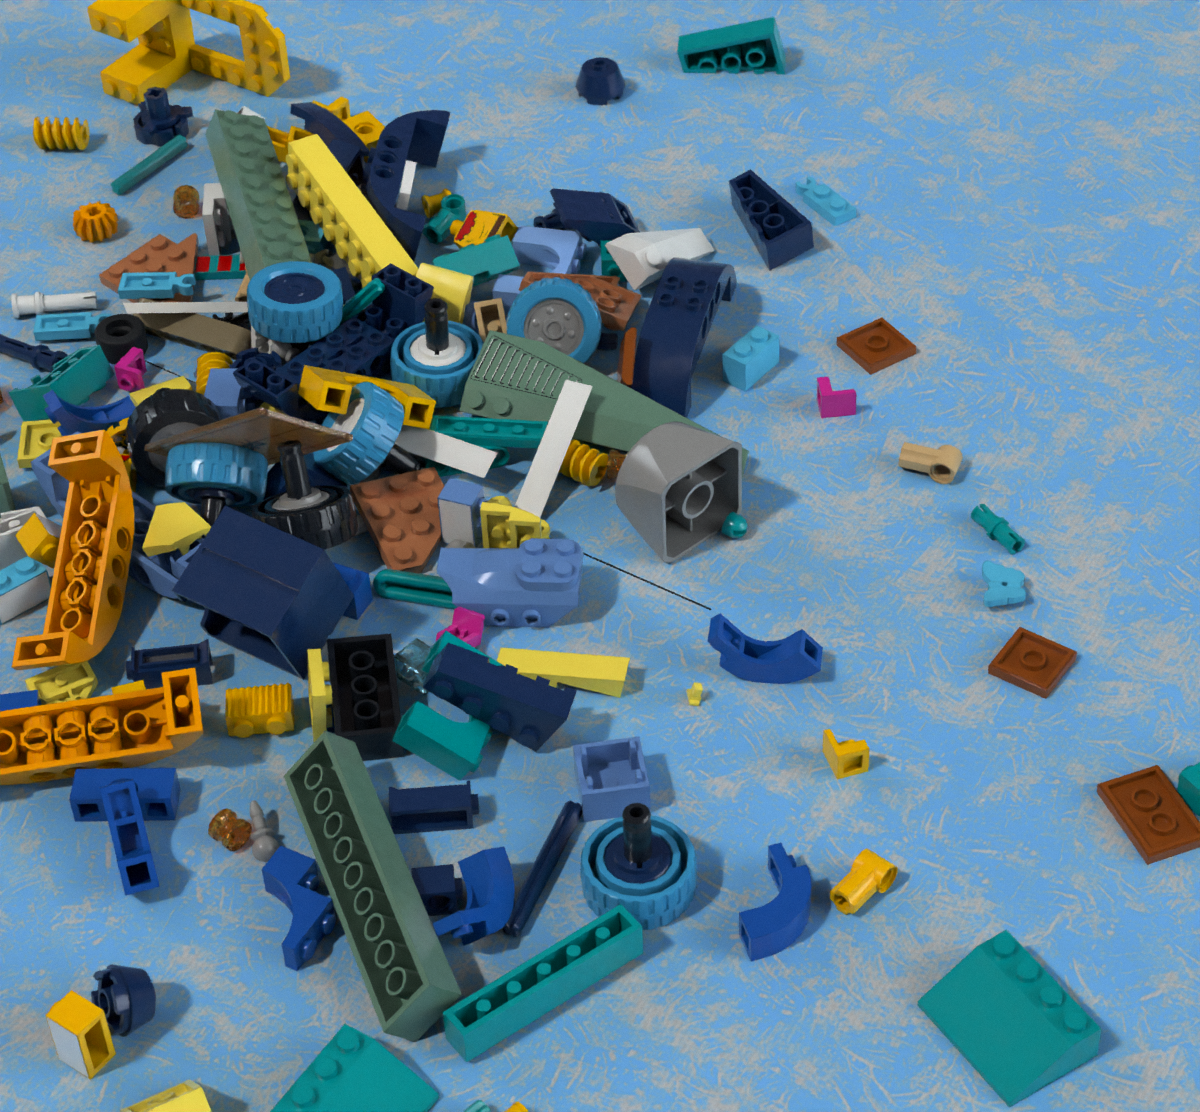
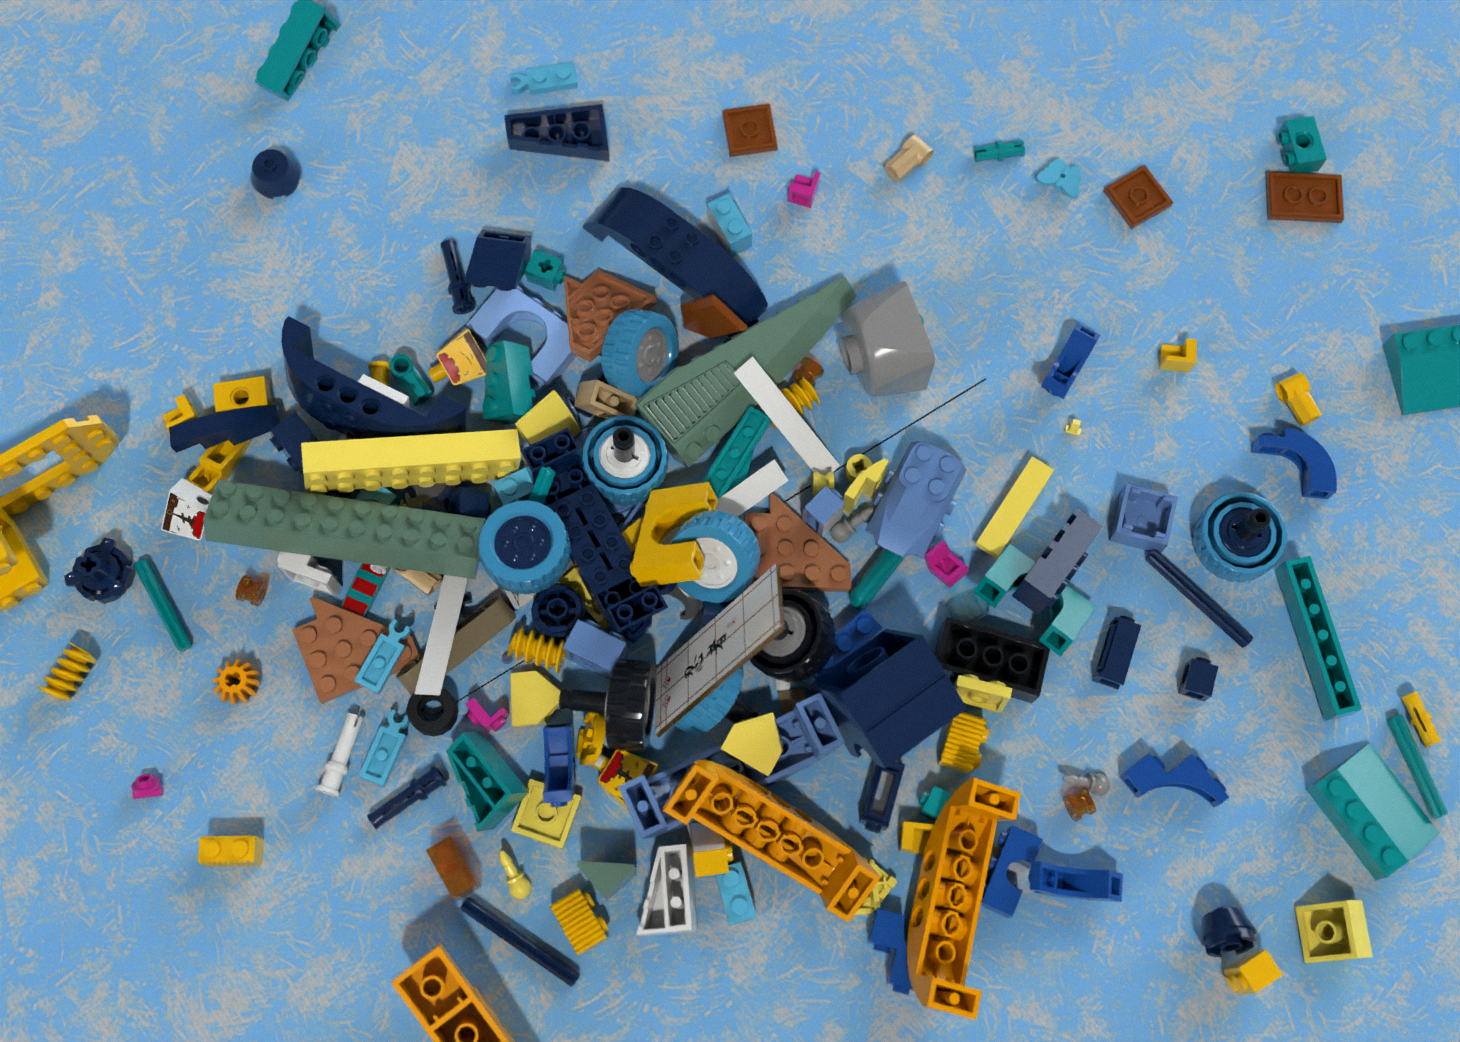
camera: 70 degrees left, 30 degrees up
(371, 888) = (1189, 722): sand green brick -> none
(489, 897) = (1232, 649): blue arch -> none
(646, 254) = (567, 236): white wedge -> none

